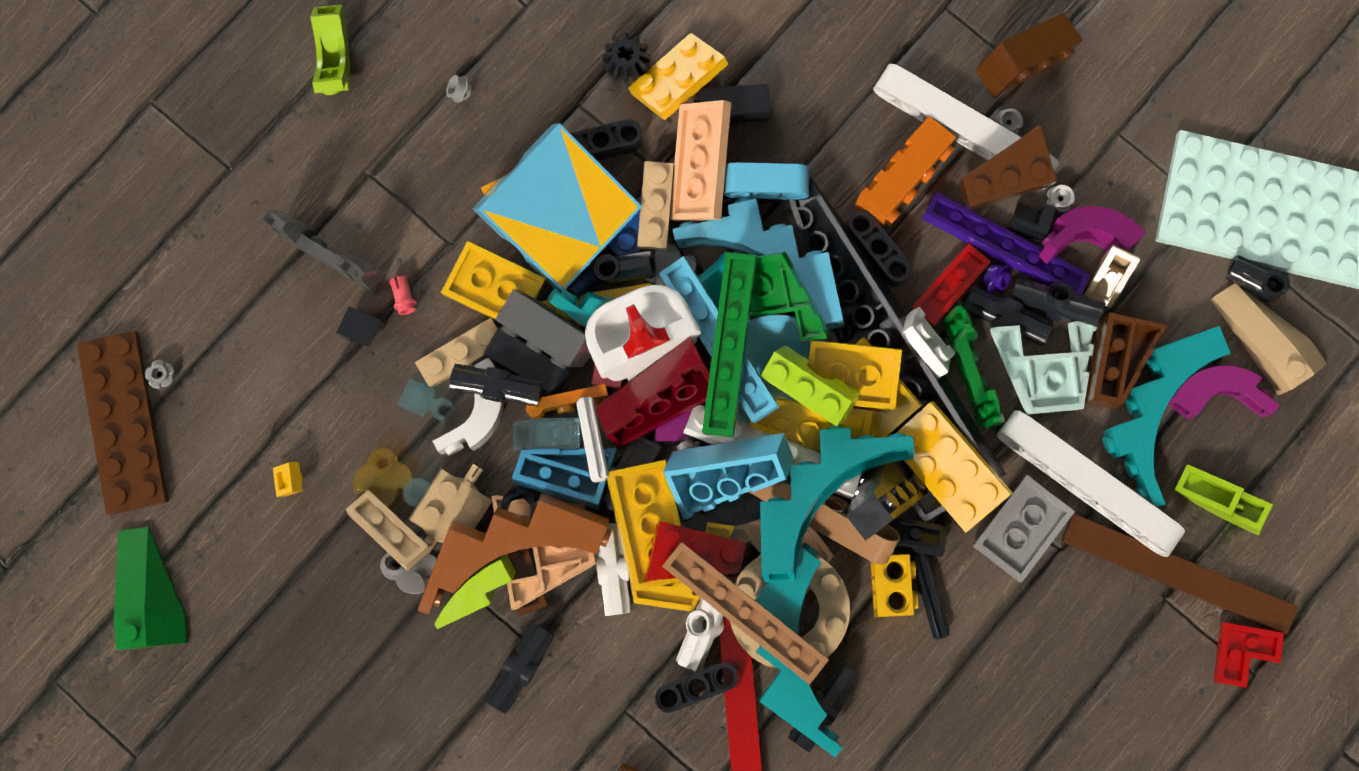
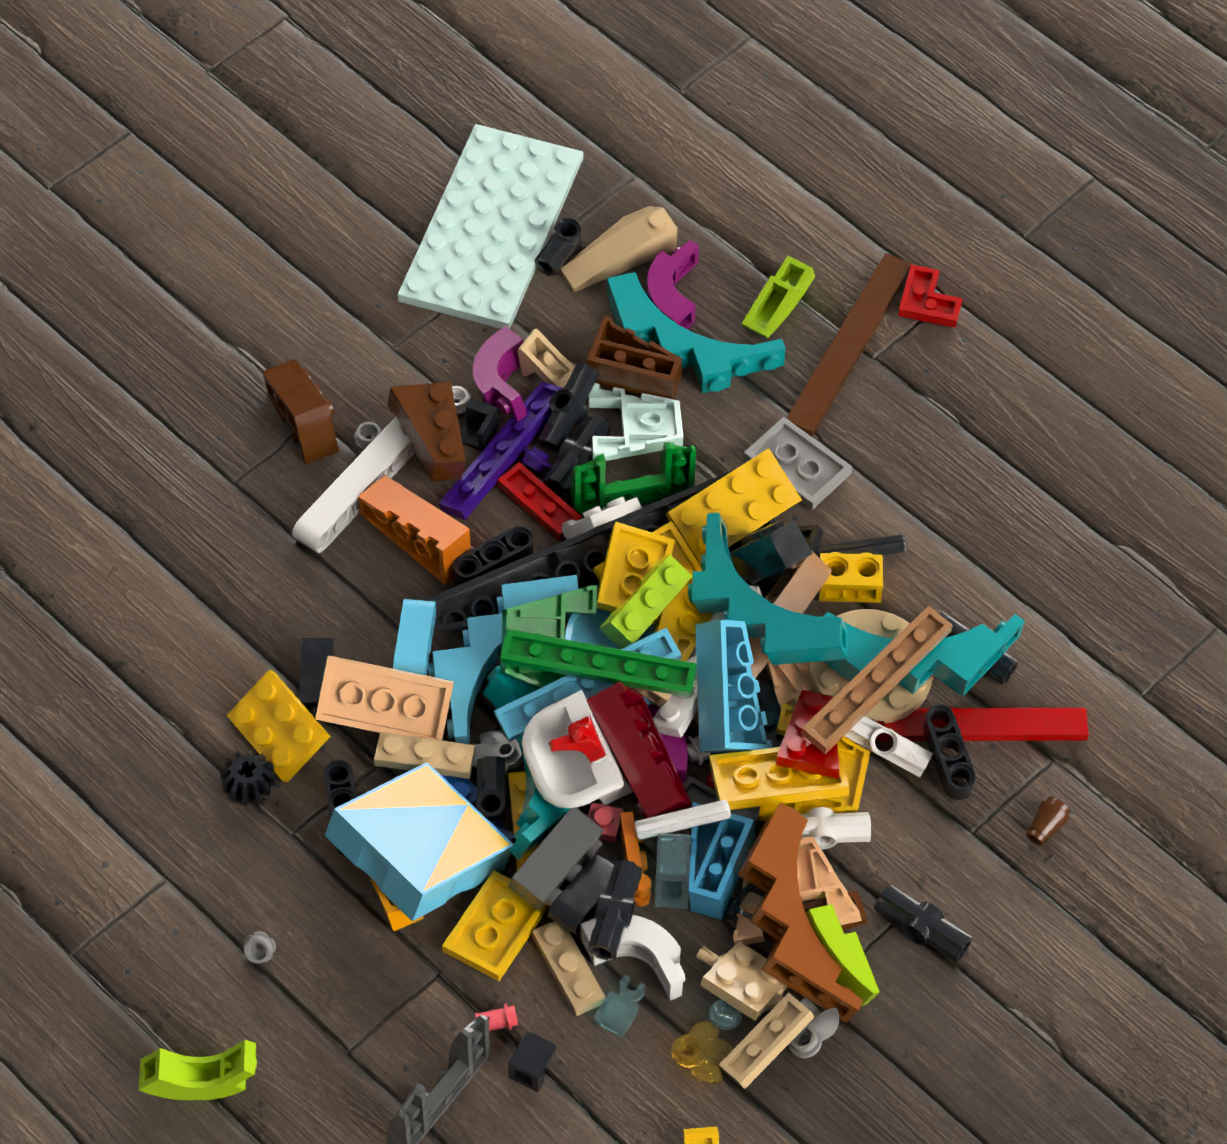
camera: 85 degrees left, 25 degrees down
(1091, 483) = (758, 398): white beam -> none

